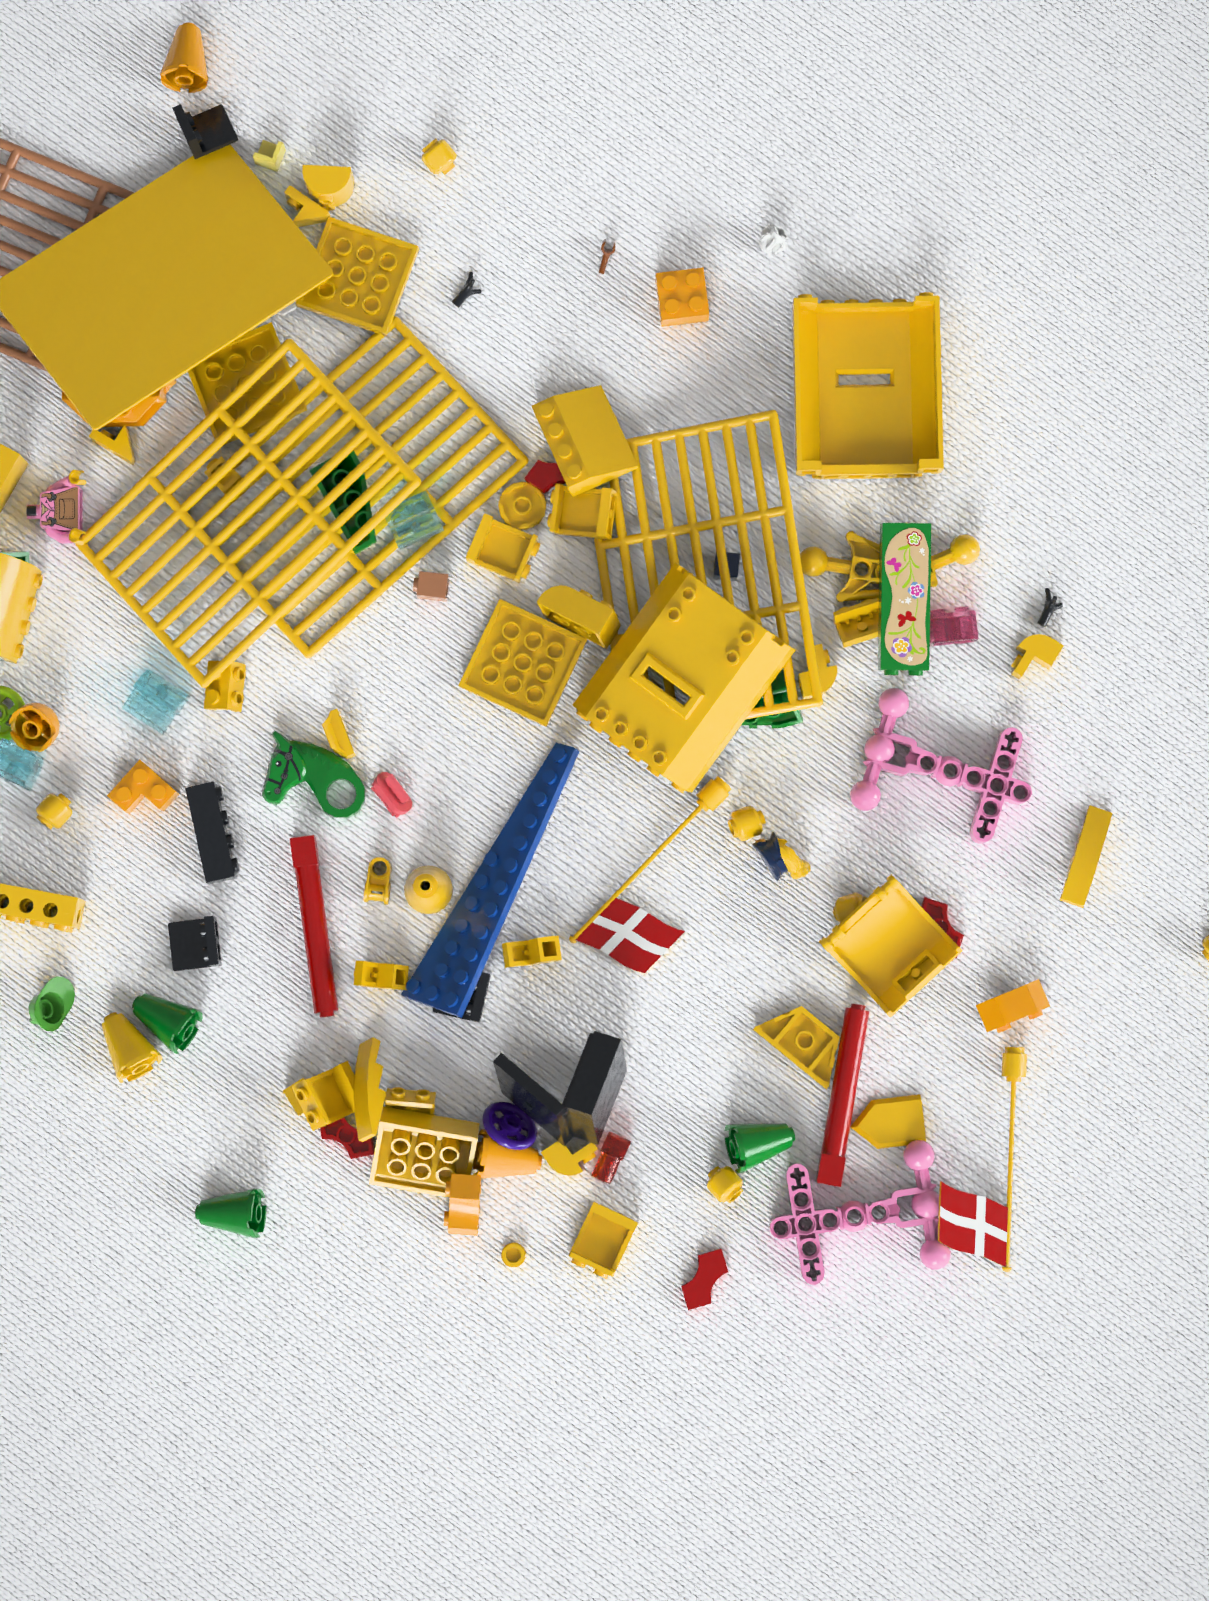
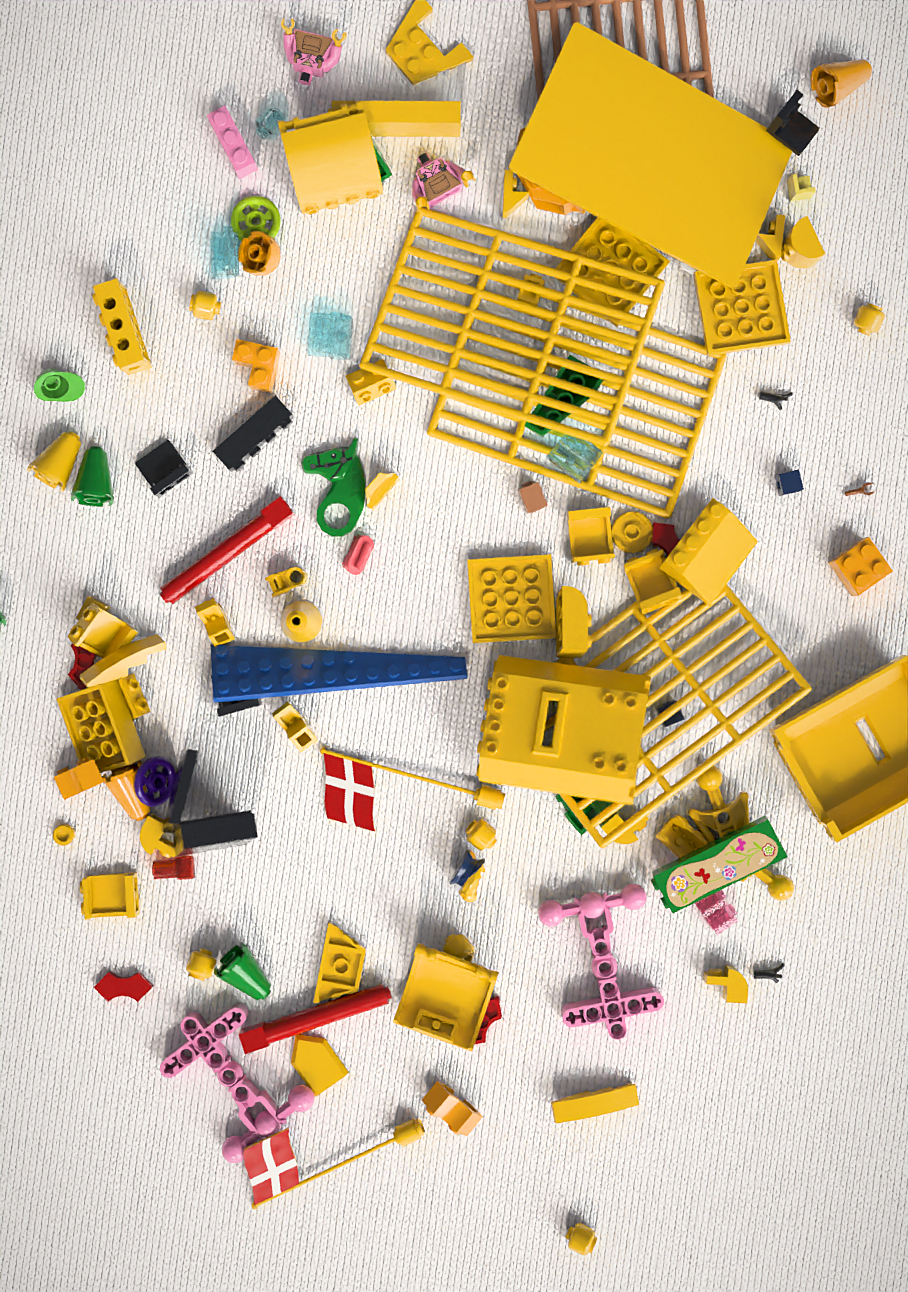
camera: 65 degrees right, 5 degrees up
(558, 322) = (789, 482): none -> dark blue piece

